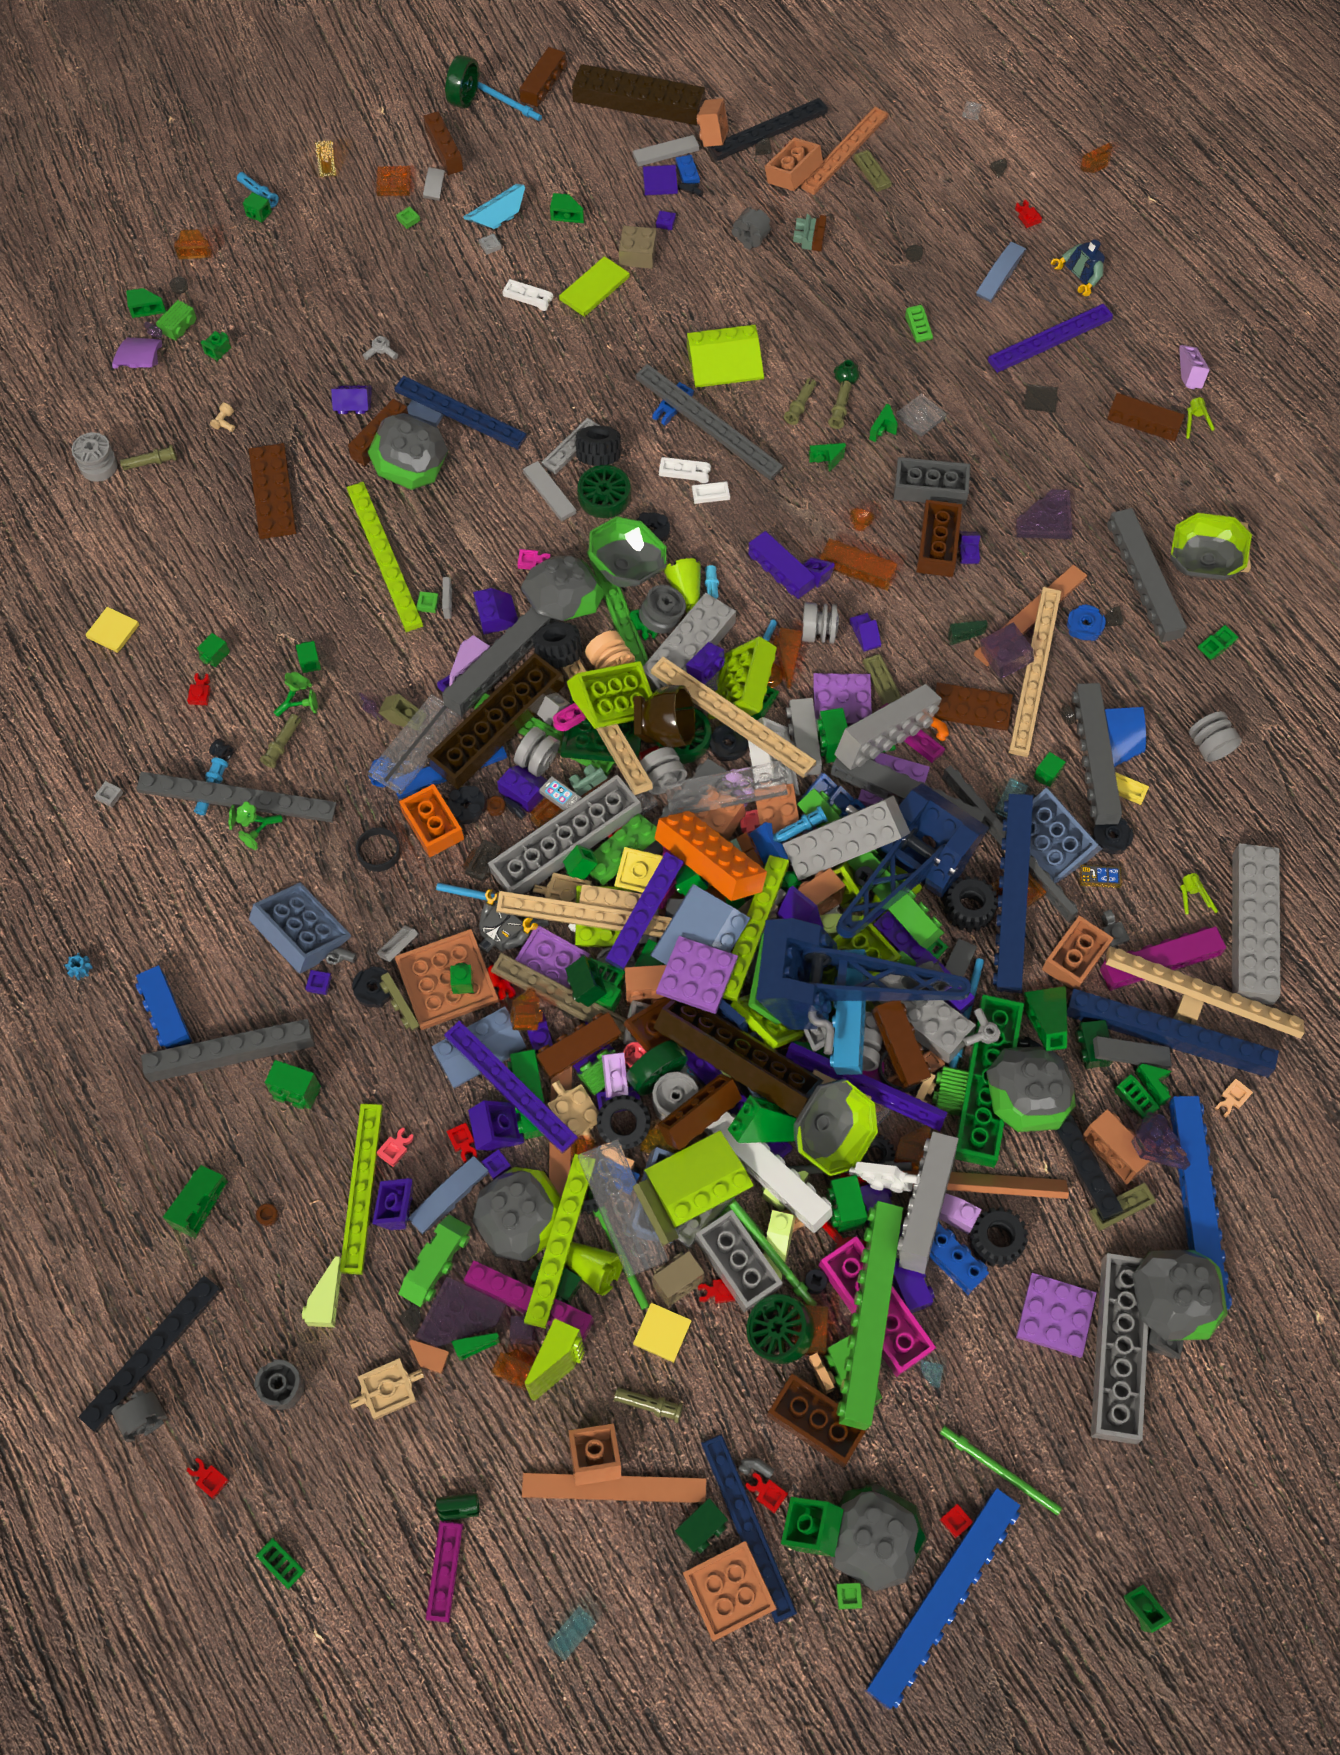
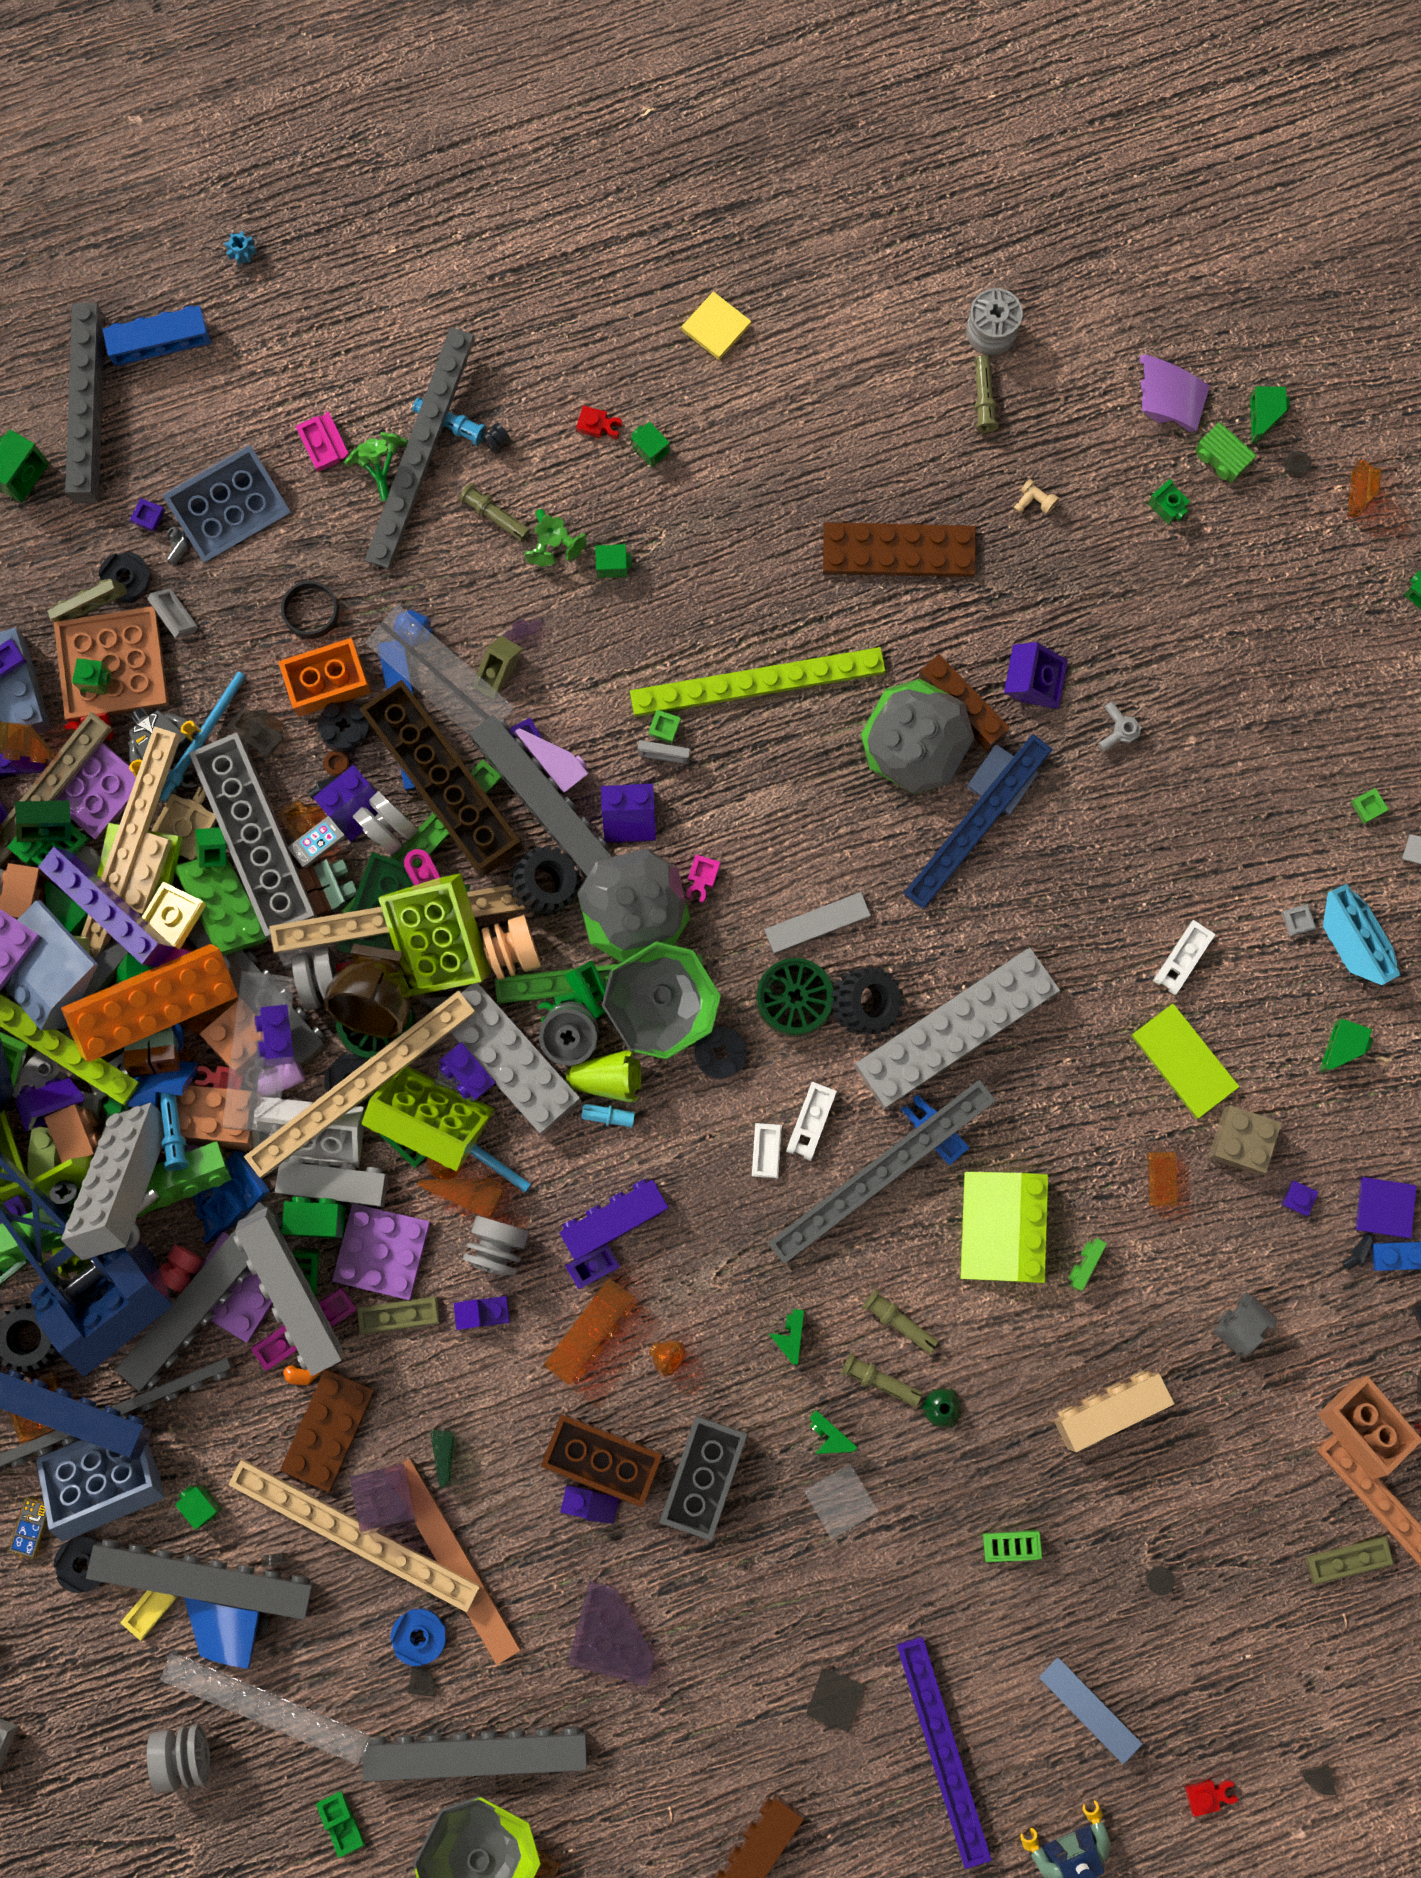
camera: 105 degrees right, 15 degrees up
(108, 794) = (468, 300): light grey plate -> none
(153, 330) = (1212, 418): clear purple piece -> none
(239, 870) = (322, 441): none -> dark pink plate
(550, 706) = (450, 857): light grey brick -> none
(566, 450) = (882, 956): light grey tile -> none
(604, 400) = (956, 1028): none -> light grey brick
(623, 607) = (578, 981): none -> green slope
(672, 285) = (1162, 1178): none -> clear orange plate
(712, 772) = (275, 1034): none -> dark purple brick
(736, 312) = (1081, 1273): none -> bright green plate
(812, 232) = (1227, 1425): sand green hips -> none
(823, 281) = (1113, 1411): none -> tan brick
(1012, 787) = (174, 1441): clear light blue tile -> none
(1163, 698) = (265, 1708): none -> clear plate

